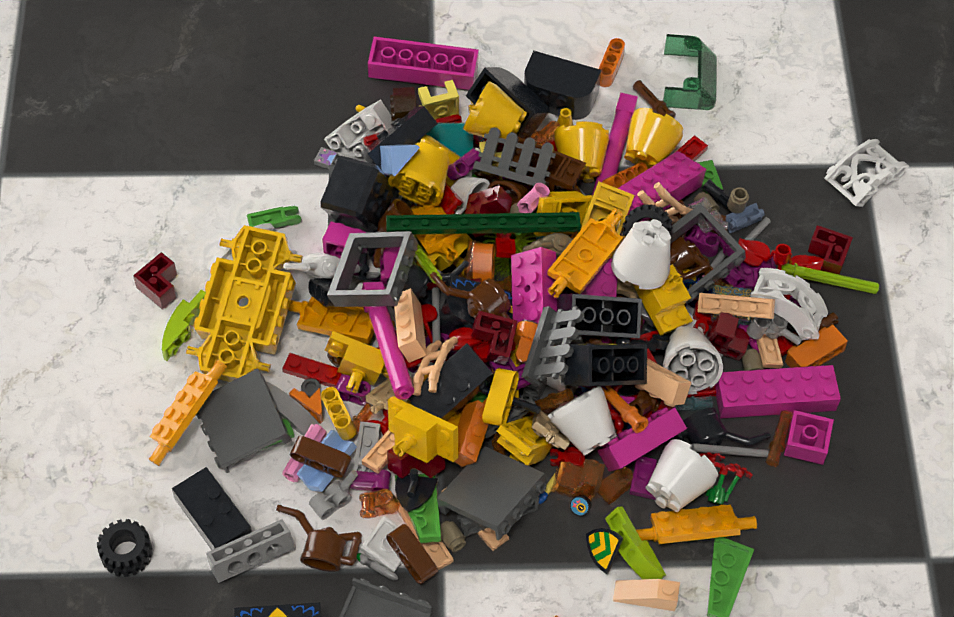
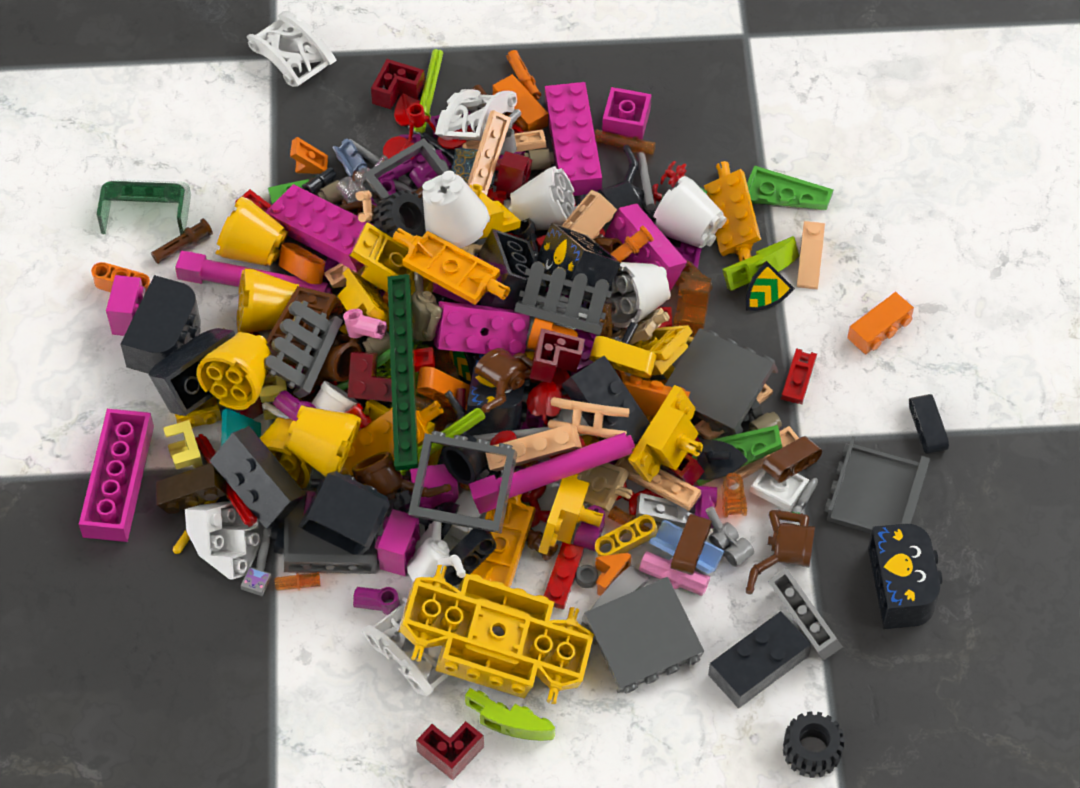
camera: 90 degrees left, 0 degrees up
(183, 410) = (637, 693): light orange plate -> none
(275, 216) = (350, 634): bright green hinge -> none
(299, 235) = (374, 599): none -> magenta piece
(321, 184) = (297, 581): none -> clear orange axle
(395, 157) = (308, 459): light blue slope -> none
(508, 572) = (799, 376): none -> red plate
(565, 117) = (209, 322): yellow cone -> none
(580, 505) = (717, 311): tile -> none
(582, 53) = (124, 302): none -> dark pink brick
(738, 200) = (336, 156): dark tan brick -> none
(746, 179) = (308, 157): none -> orange slope
(845, 359) = (522, 73): none -> orange pin

